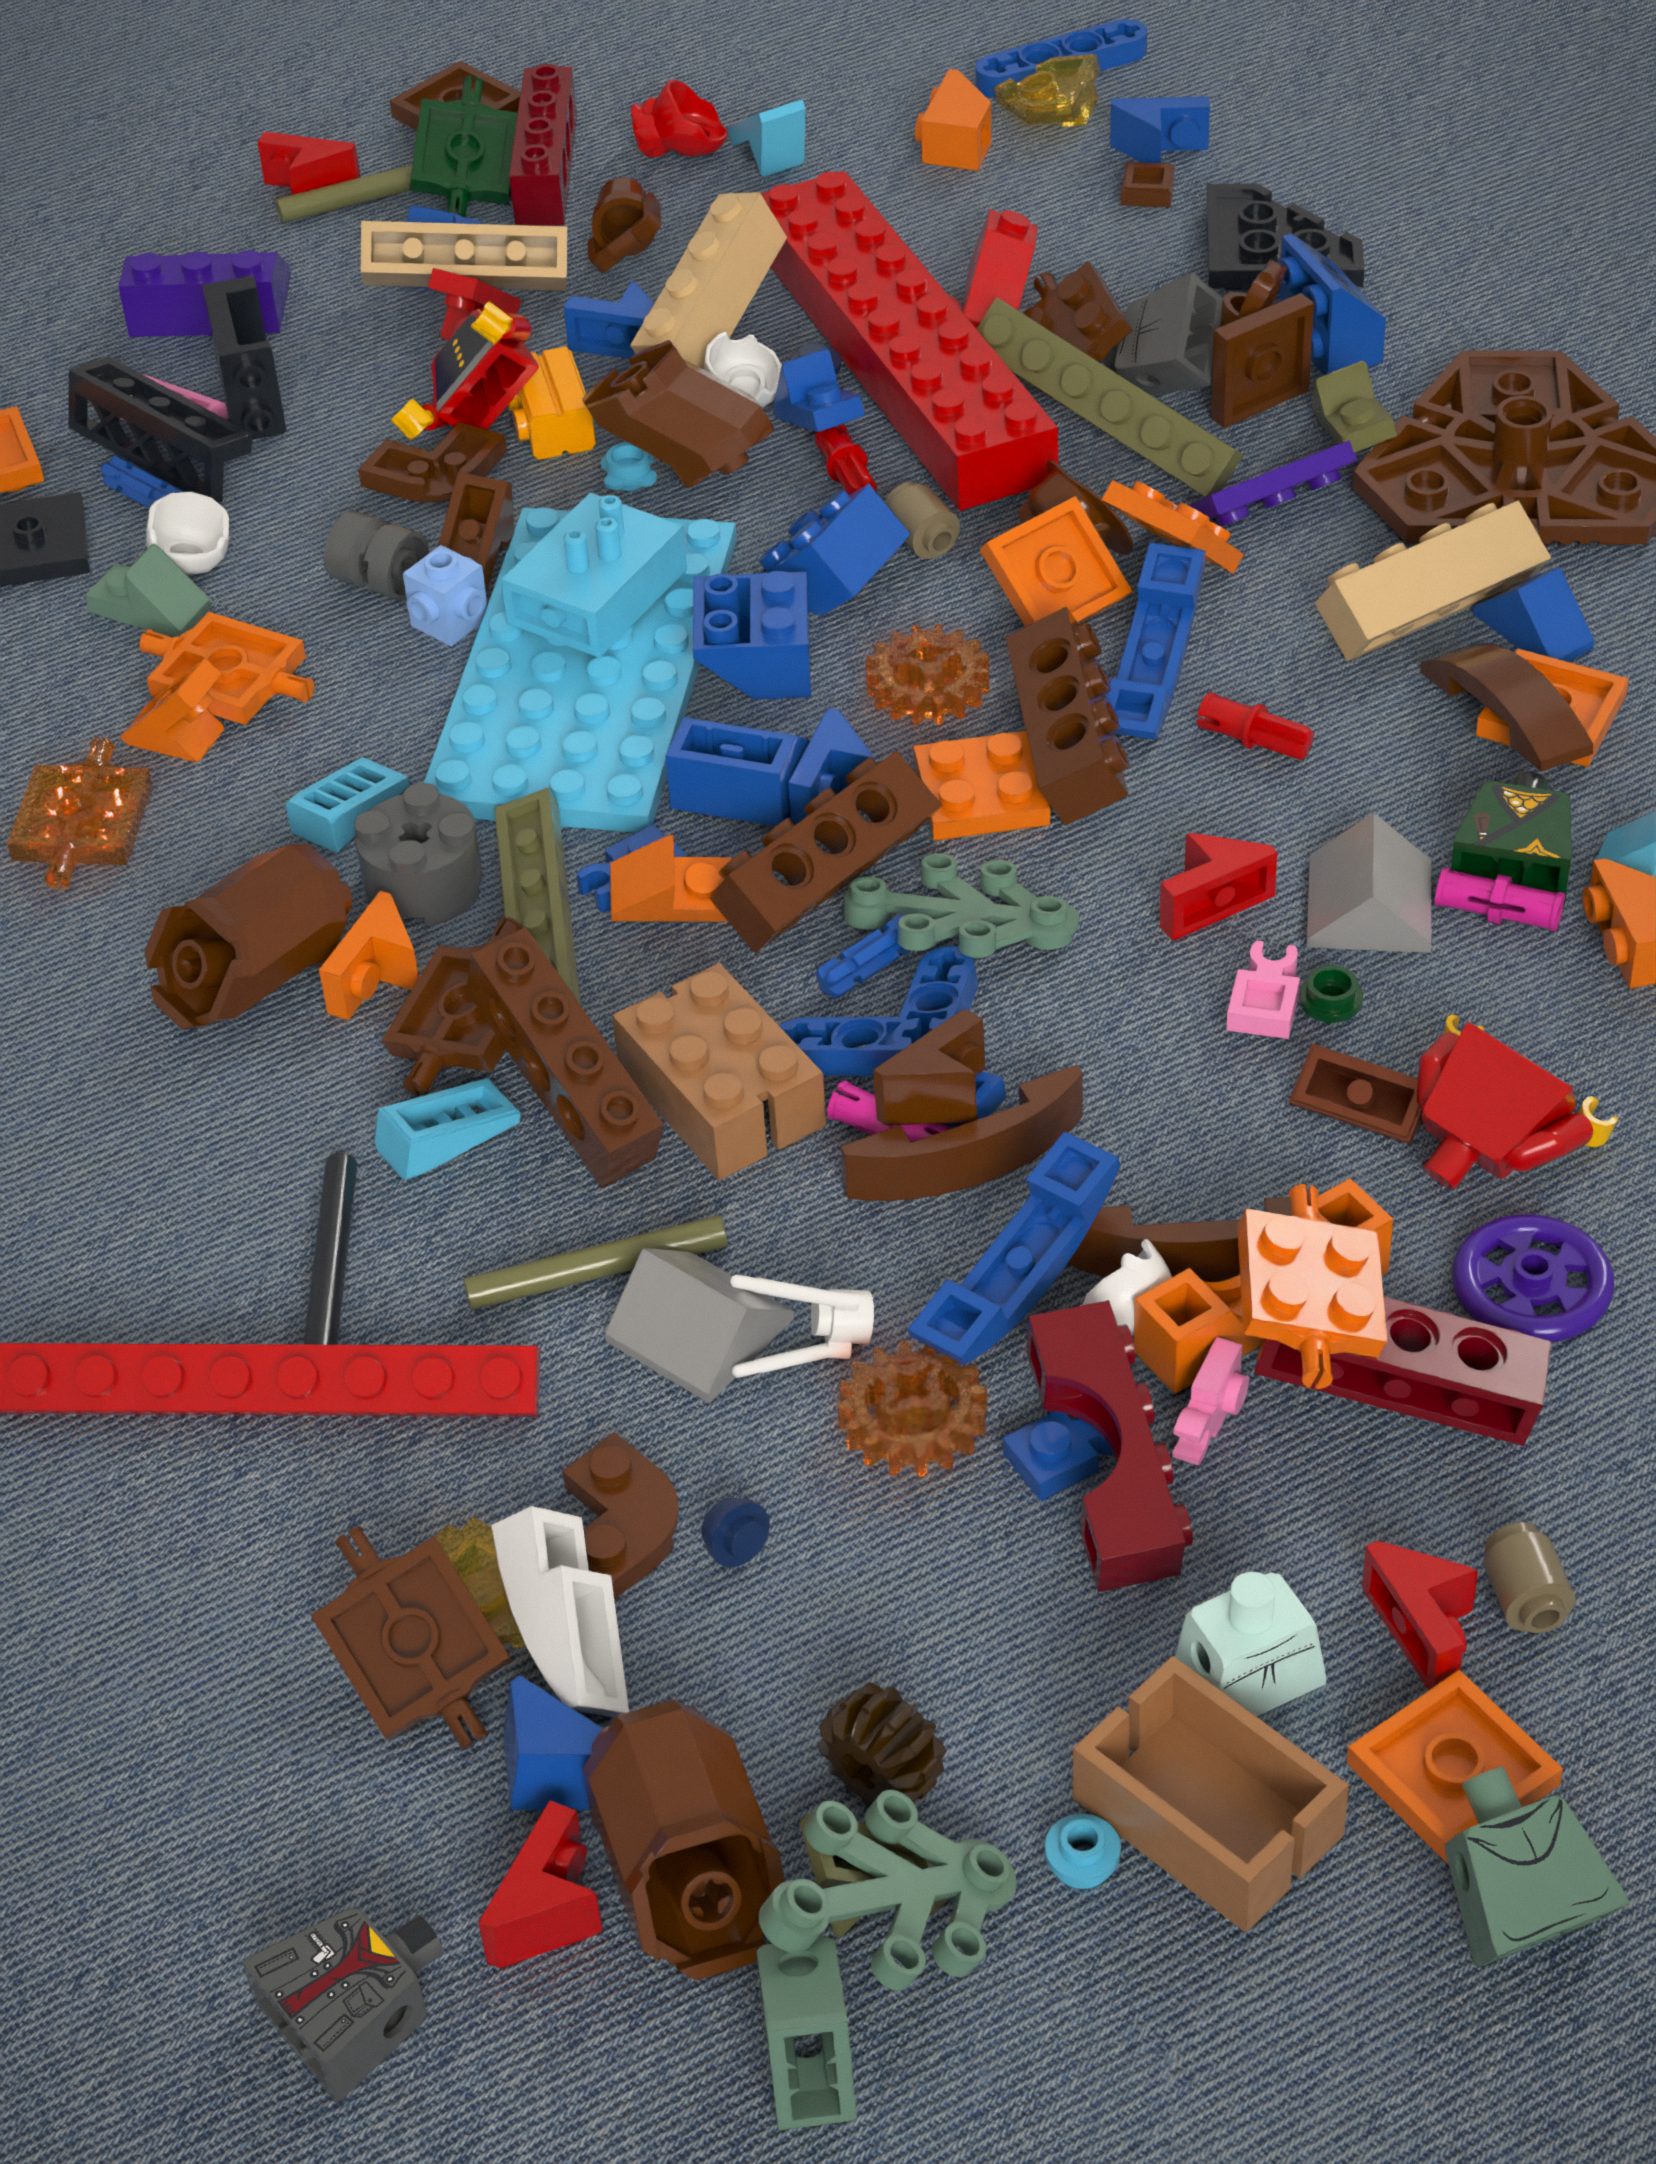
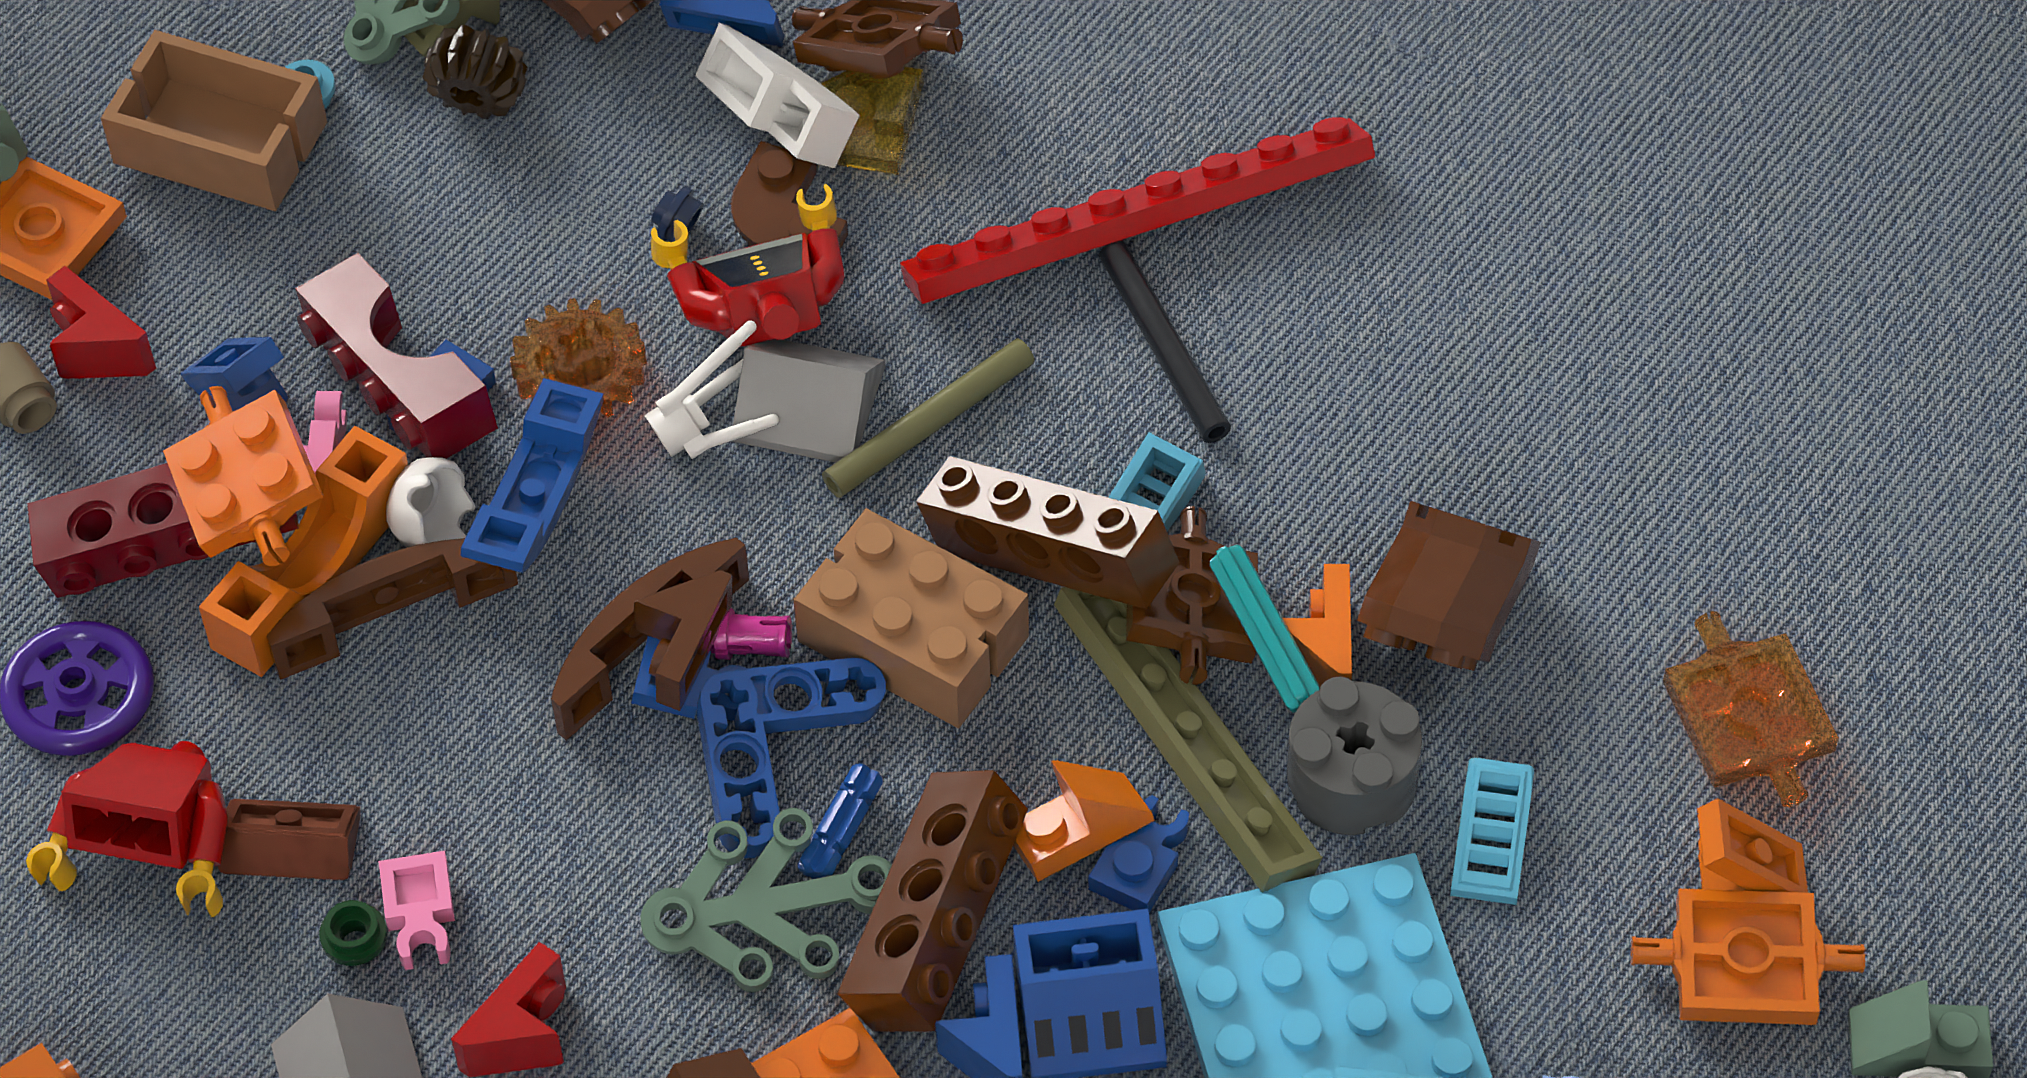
camera: 155 degrees right, 10 degrees up
(425, 943) = (1264, 626): none -> teal axle
(690, 1388) = (767, 283): none -> red torso
(1254, 1643) = (216, 236): light aqua torso -> none
(1279, 1503) = (240, 368): none -> blue slope

